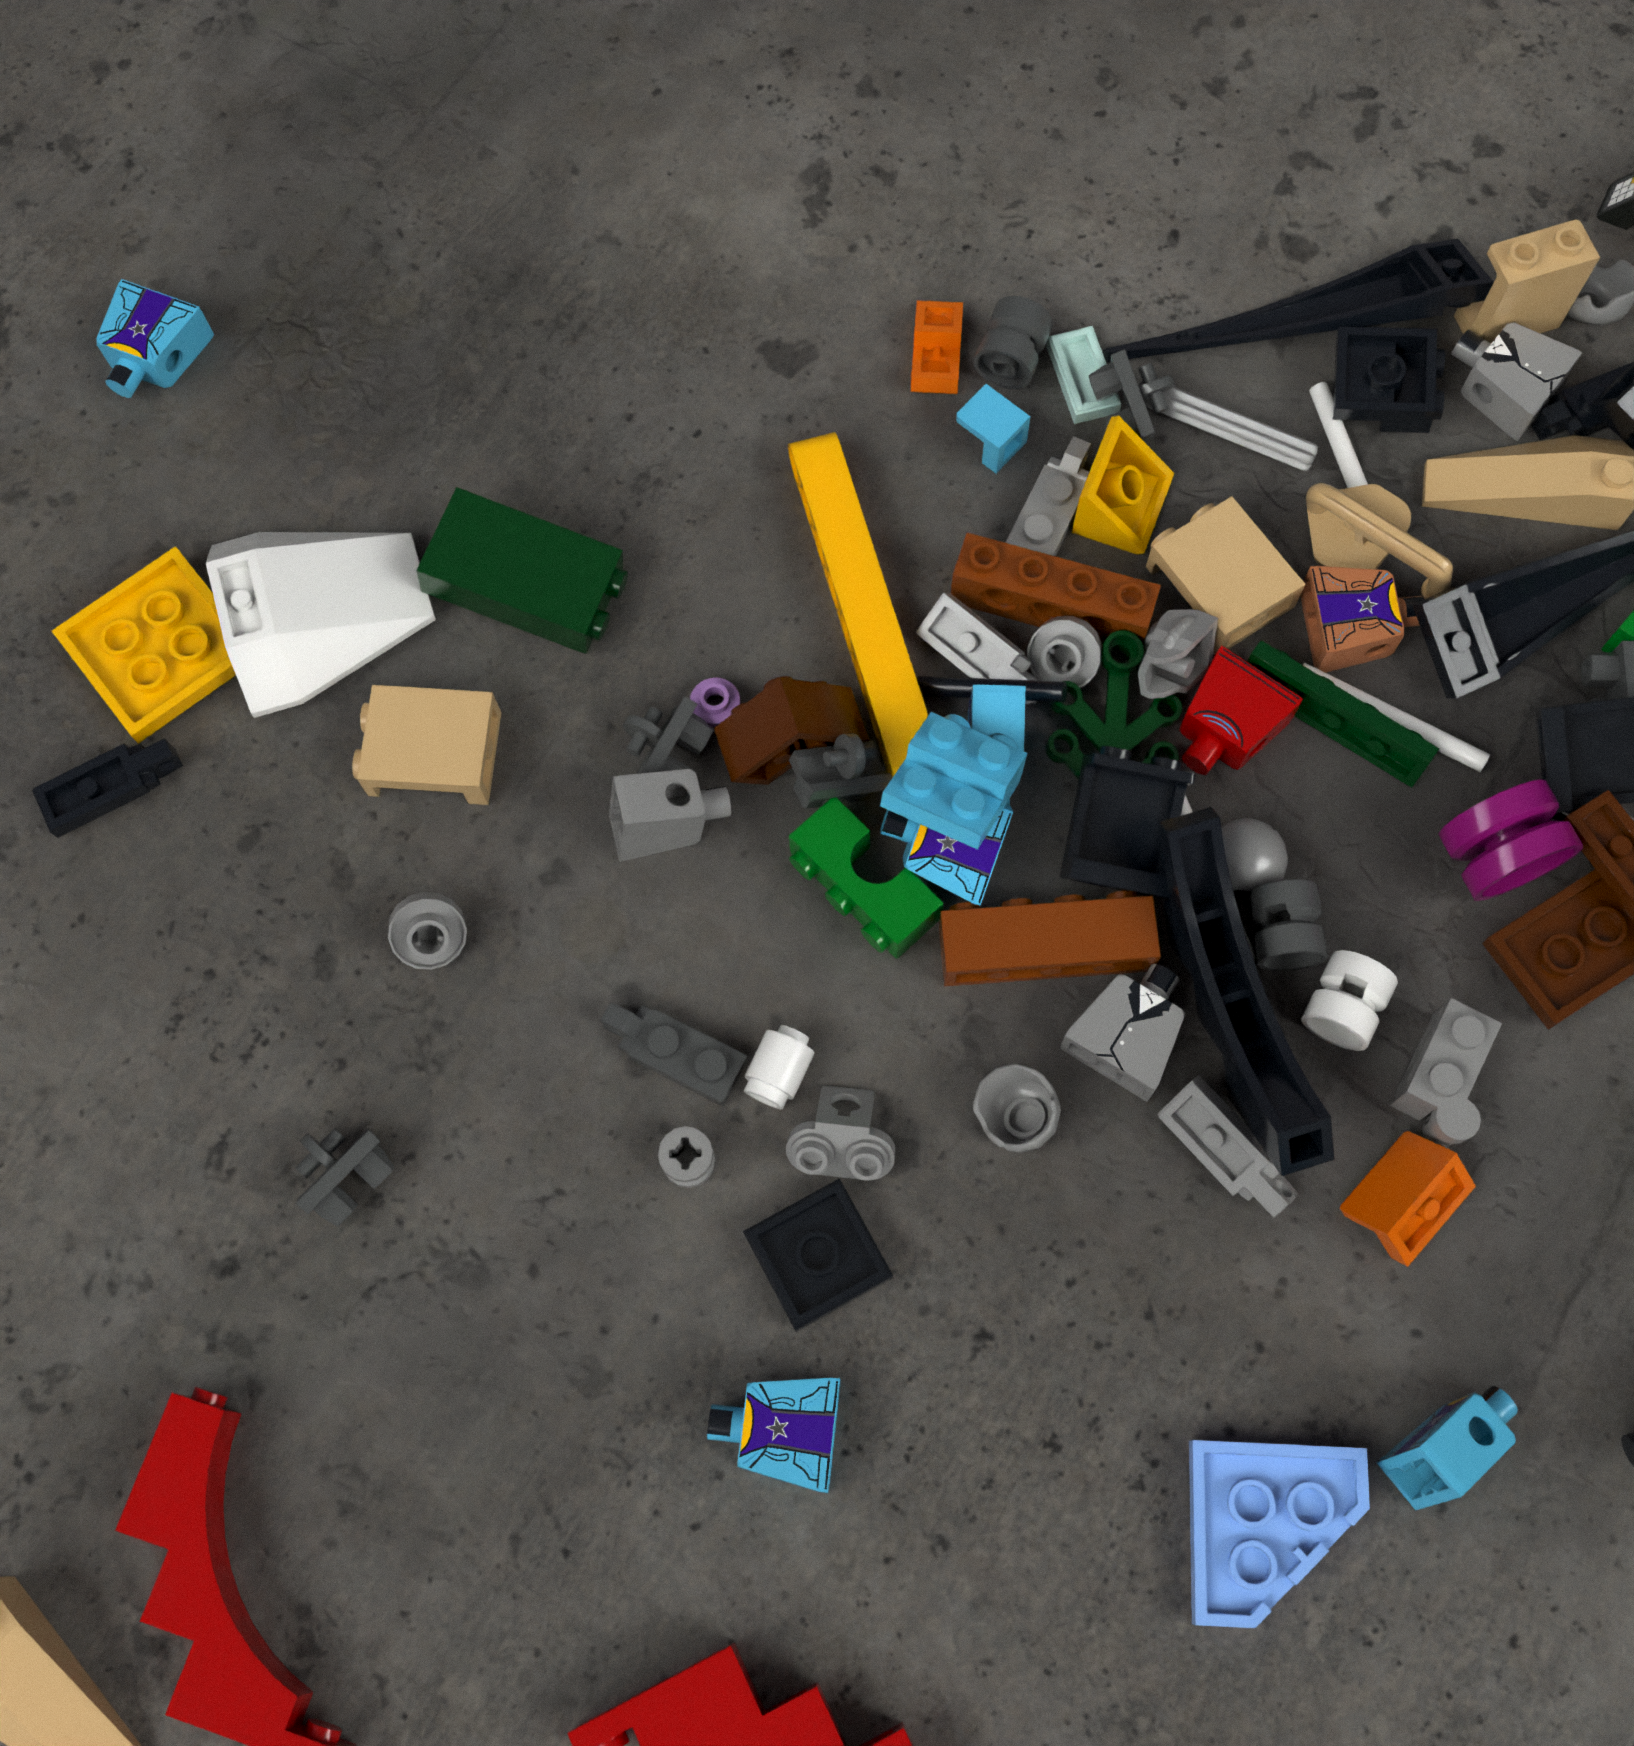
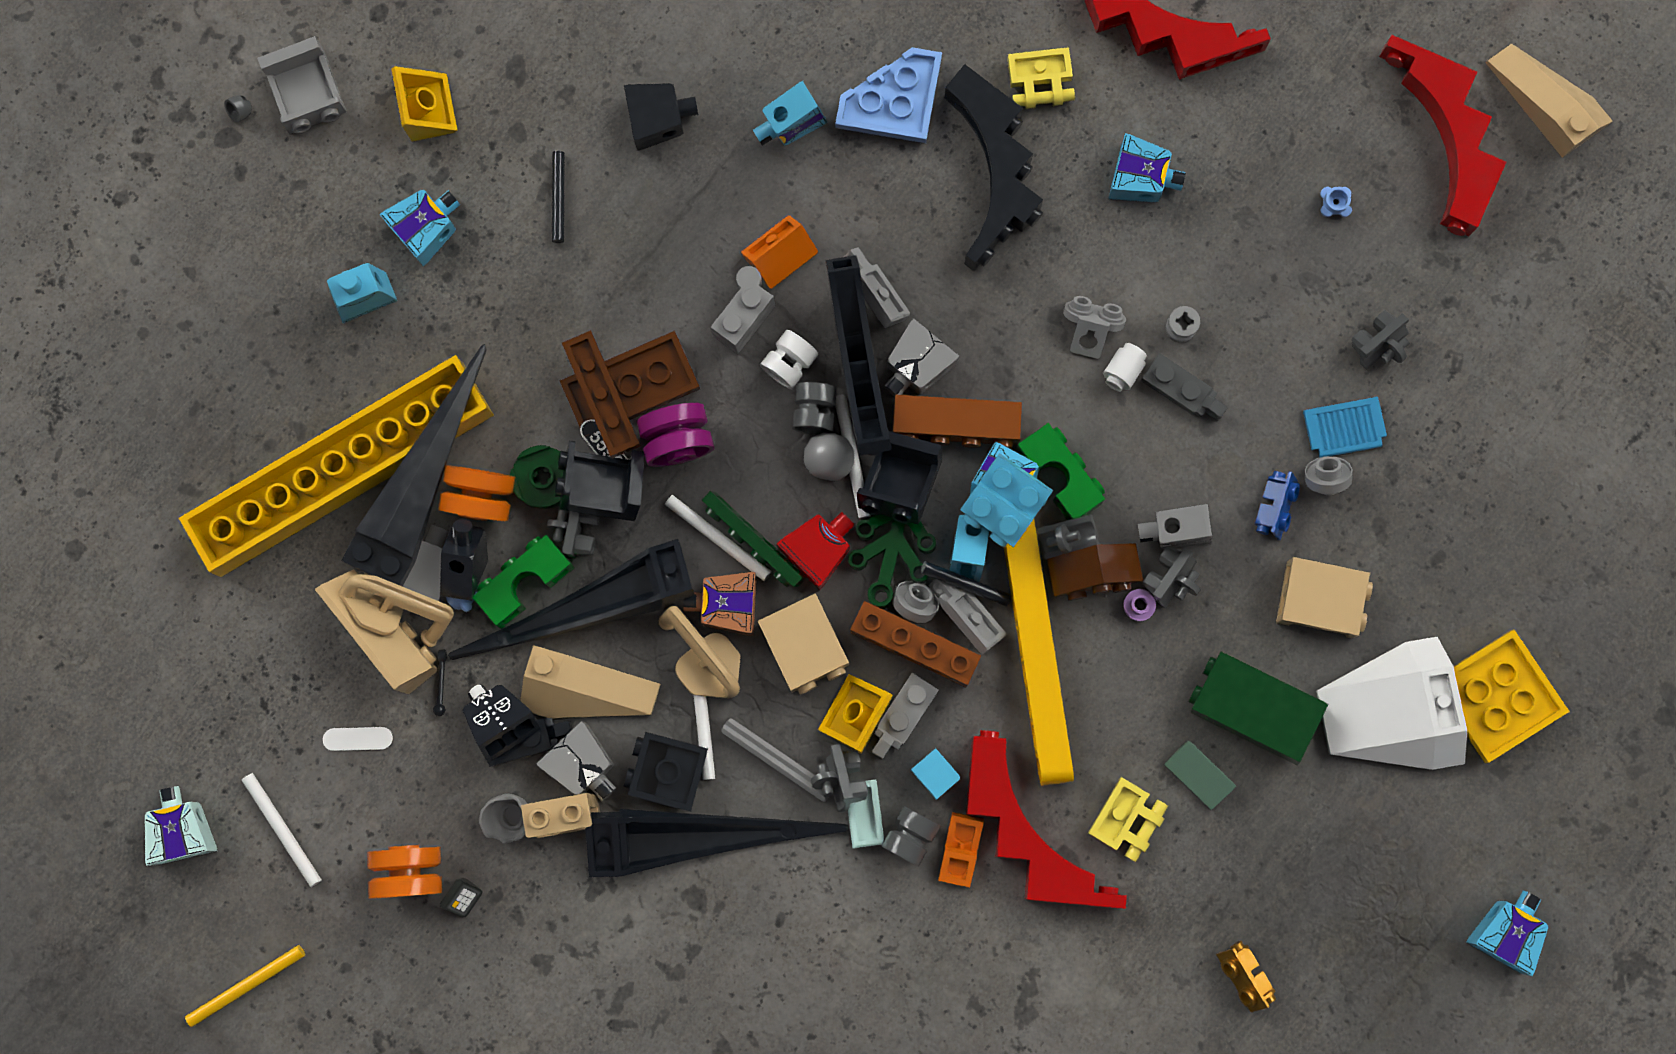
camera: 170 degrees left, 10 degrees up
(103, 784) = (1531, 601): black hinge -> none
(401, 1026) = (1345, 427): none -> dark azure window
(415, 1416) = (1341, 194): none -> light blue plate
(510, 860) = (1277, 516): none -> blue hinge
(530, 256) = (1254, 990): none -> pearl gold hinge
(601, 485) = (1199, 775): none -> sand green slope
(713, 419) = (1119, 814): none -> light yellow plate
(802, 325) = (1048, 874): none -> red arch
(818, 1255) = (1114, 261): black plate -> none
(1002, 1620) = (1041, 68): none -> light yellow plate
(1017, 1108) = (991, 323): light grey hair -> none
(1075, 1497) = (992, 118): none -> black arch
(1177, 652) = (847, 588): light grey hand -> none

